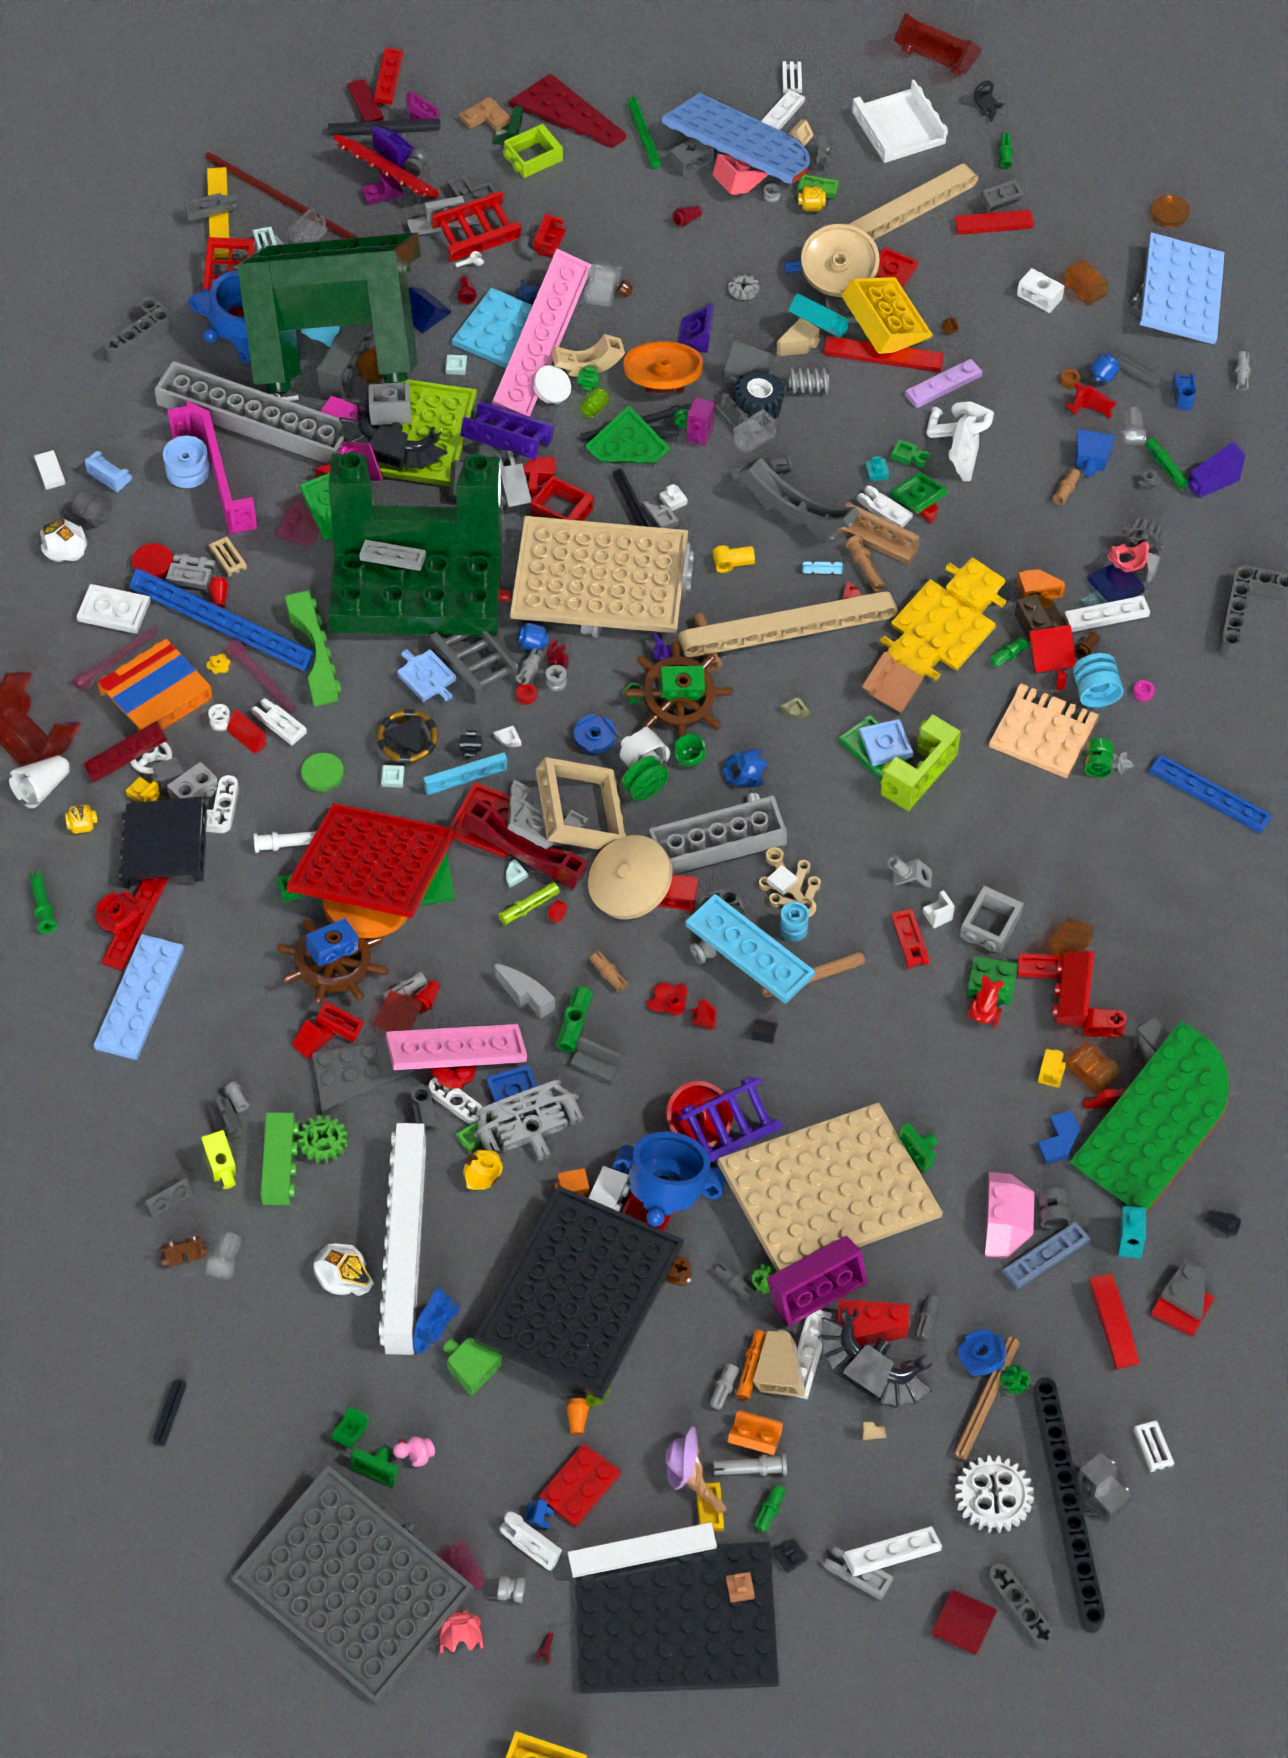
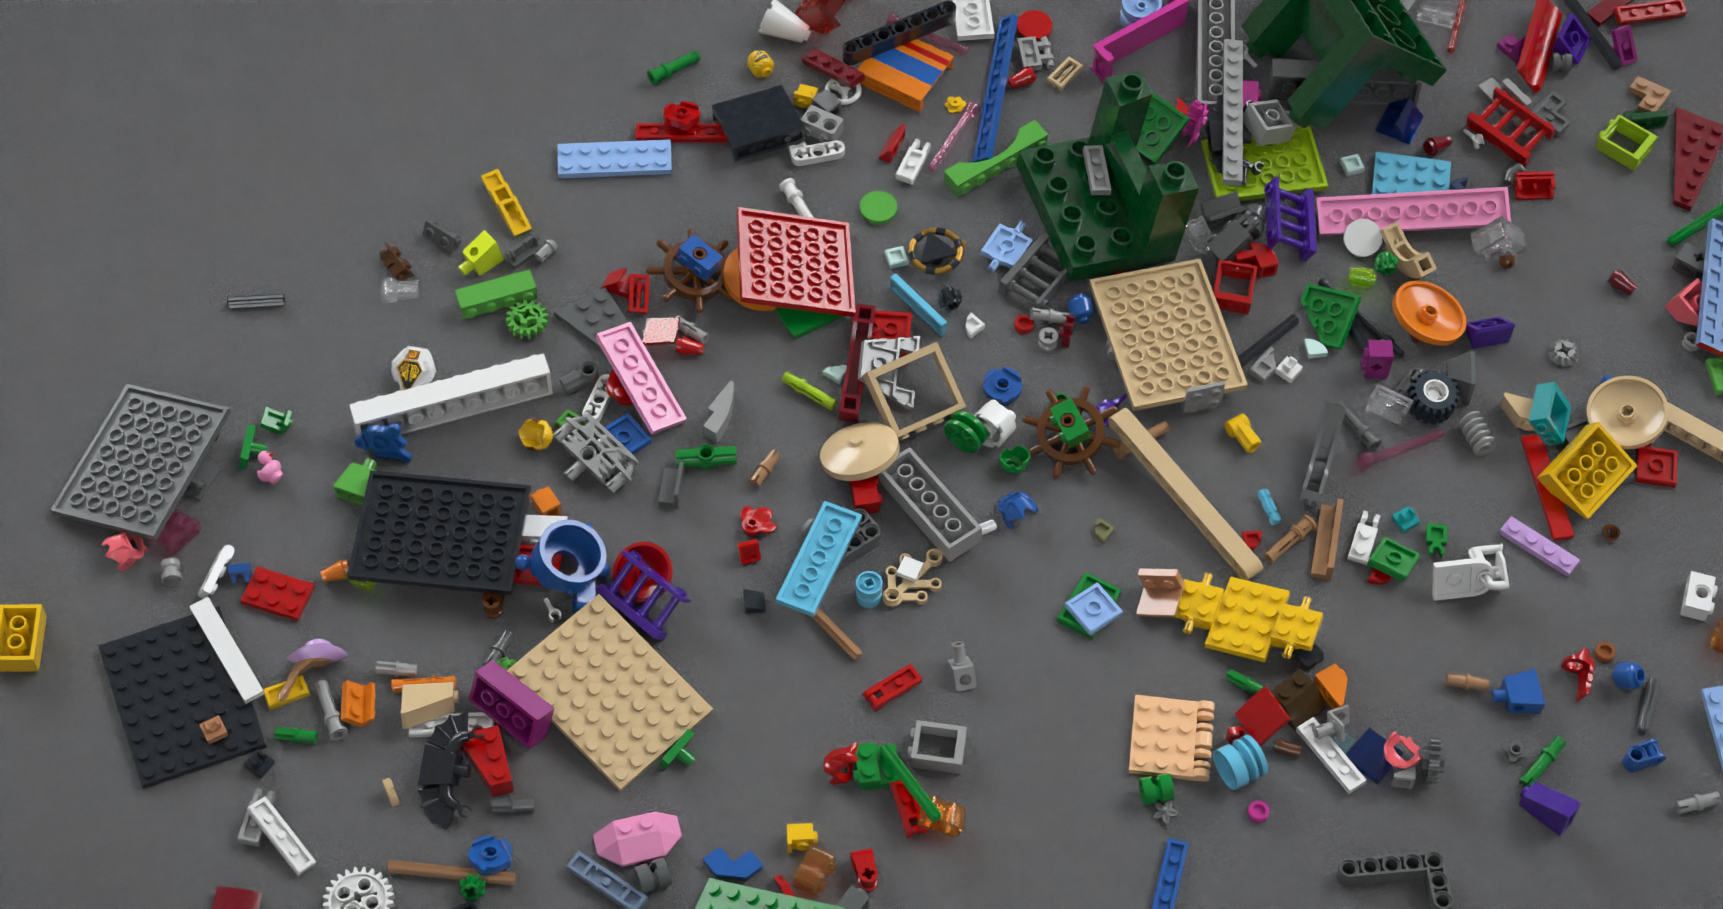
camera: 70 degrees right, 0 degrees up
(117, 673) = (899, 33): none -> black beam
(149, 1119) = (505, 202): none -> yellow slope
(218, 712) = (896, 116): white wheel -> none
(367, 424) = (1232, 113): none -> light grey plate
(545, 1651) = (124, 614): dark red hand -> none
(557, 911) = (808, 413): red tile -> none
(658, 470) = (1315, 349): none -> light aqua tile
(706, 1219) = (552, 611): none -> white hand
(802, 474) = (1366, 459): none -> clear pink piece
(812, 198) = (1699, 374): yellow head -> none
(908, 784) = (1076, 650): lime plate -> none
(939, 911) = (930, 702): white panel -> none
(1034, 948) = (910, 783): none -> green axle
(1073, 988) = (884, 829): red slope -> none
(1082, 598) = (1333, 725): none -> light grey bracket
(1134, 431) = (1565, 723): clear piece -> none

